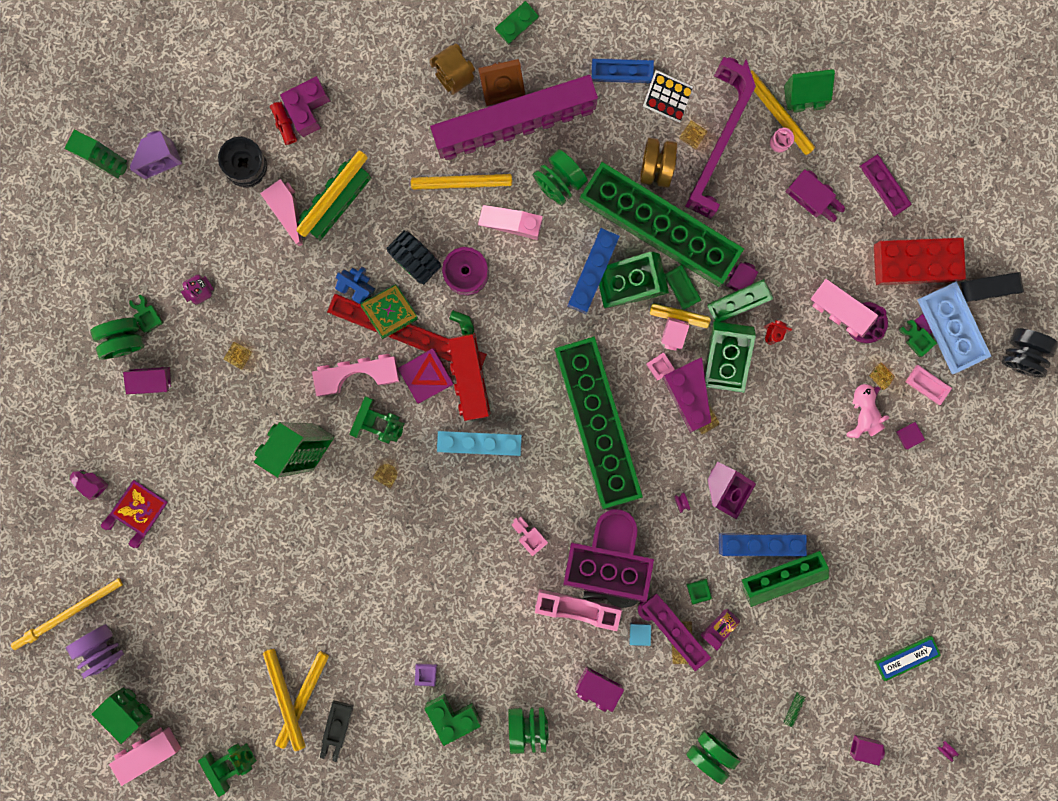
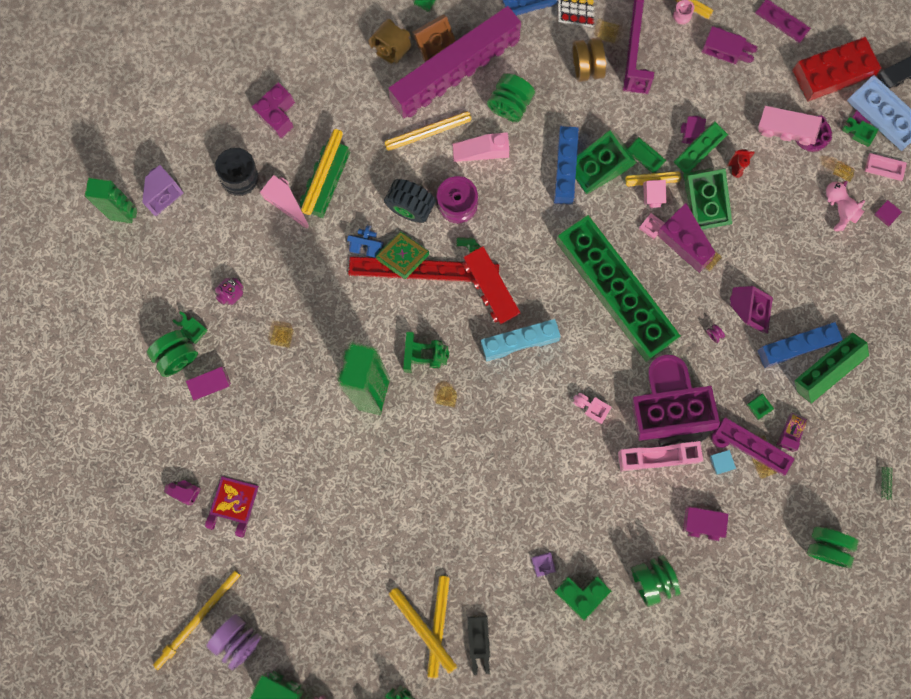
camera: 15 degrees left, 10 degrees down
(283, 123) = (260, 132): red pin -> none
(330, 380) = (412, 306): bright pink arch -> none
(425, 375) = (452, 299): magenta tile -> none
(661, 224) = (610, 109): green brick -> none

